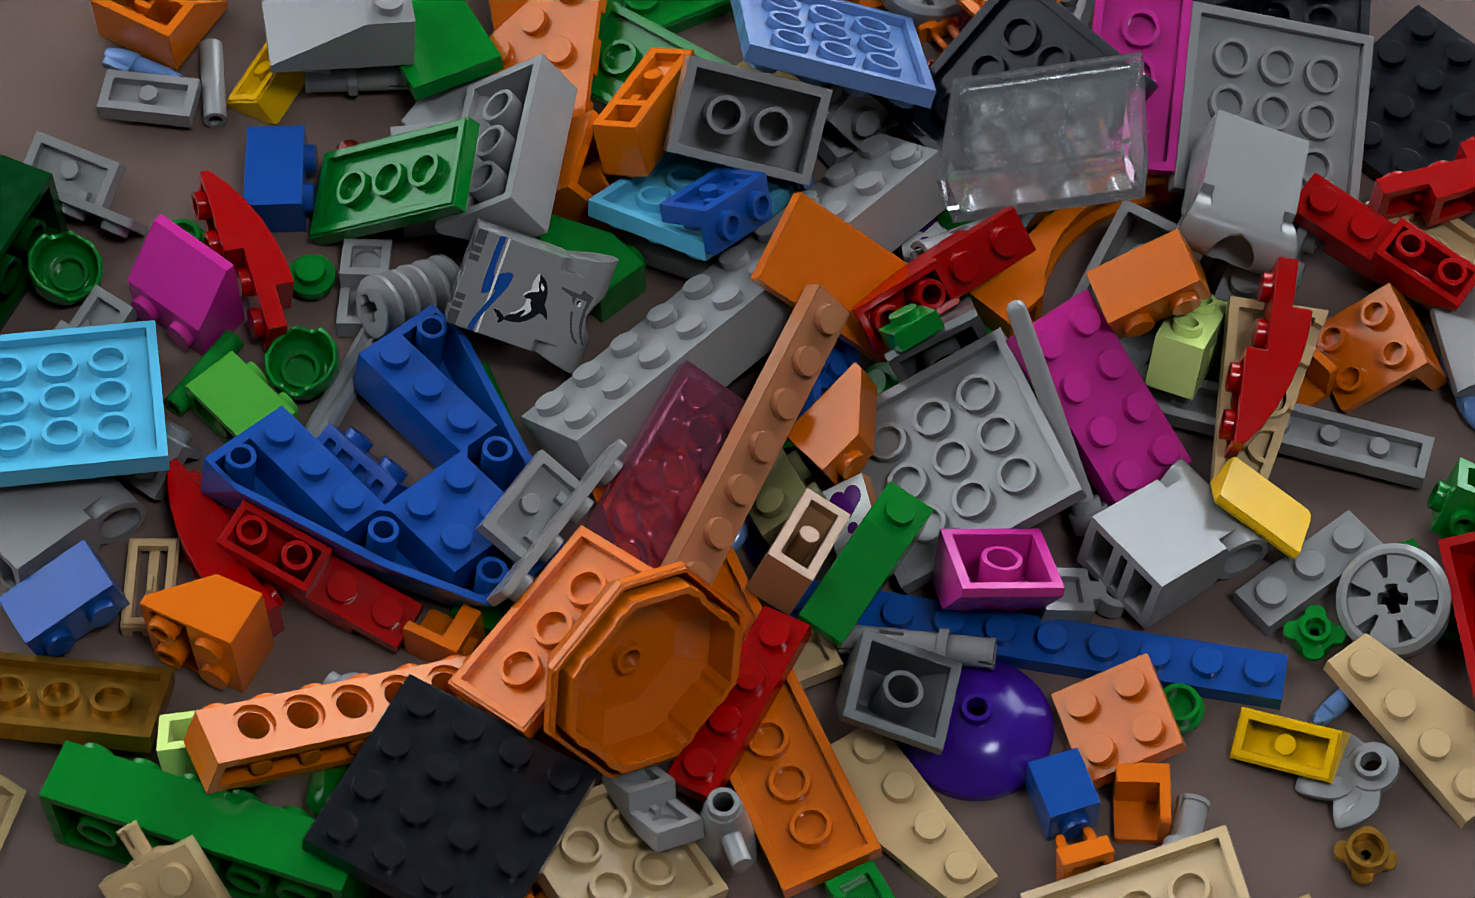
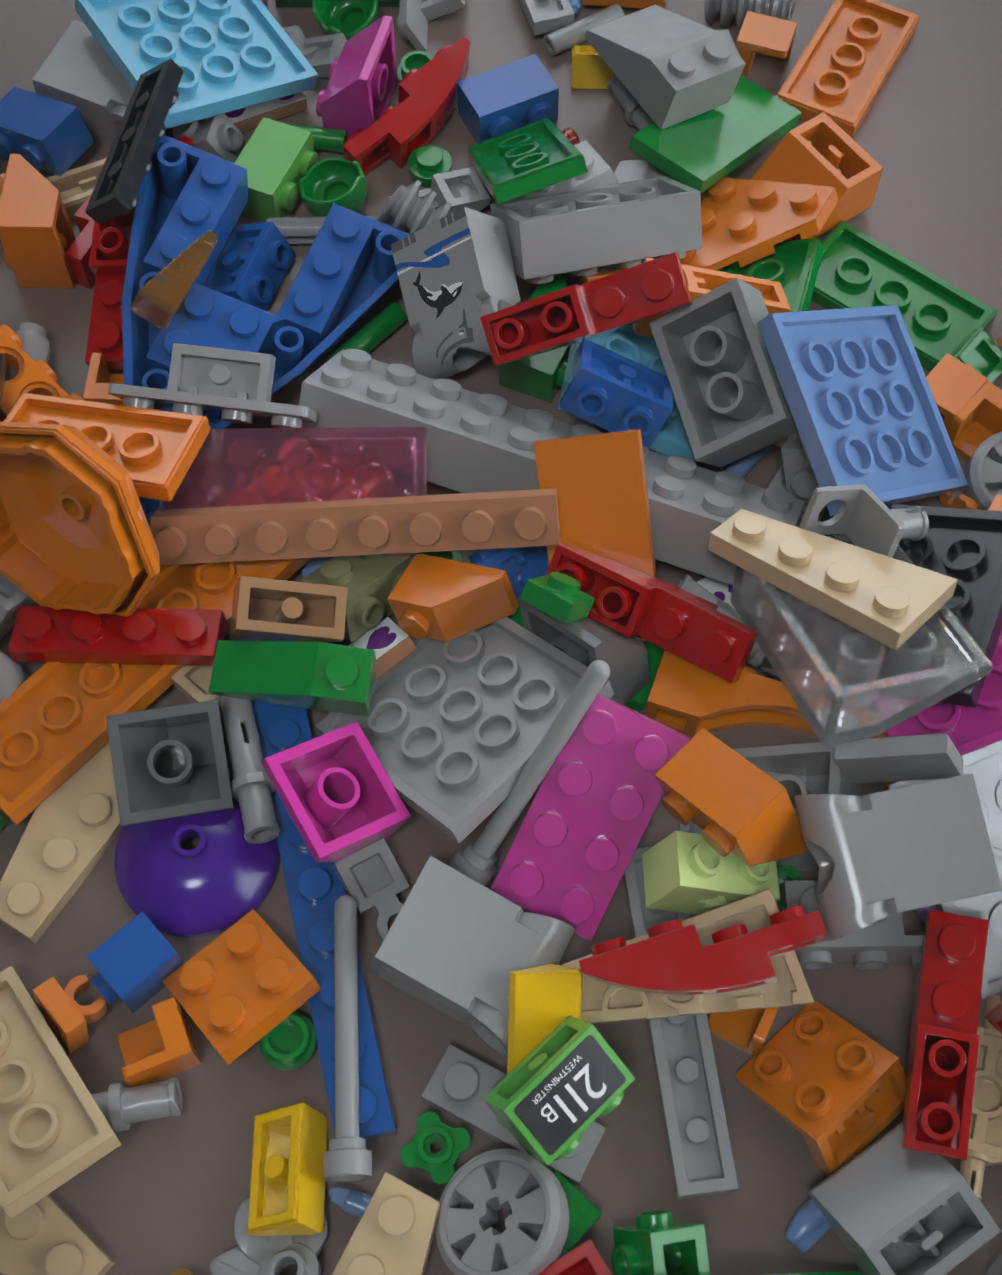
camera: 65 degrees right, 5 degrees up
(211, 477) = (134, 143): none -> black plate
(406, 508) = (166, 291): none -> clear orange slope
(634, 185) = (586, 310): none -> red slope
(962, 80) = (865, 518): none -> light grey bracket
(1009, 117) = (843, 580): none -> tan wing
(1168, 159) = (899, 758): none -> light grey tile
(1299, 684) = (347, 1153): none -> light grey piece
(1318, 509) = (560, 1090): none -> brick

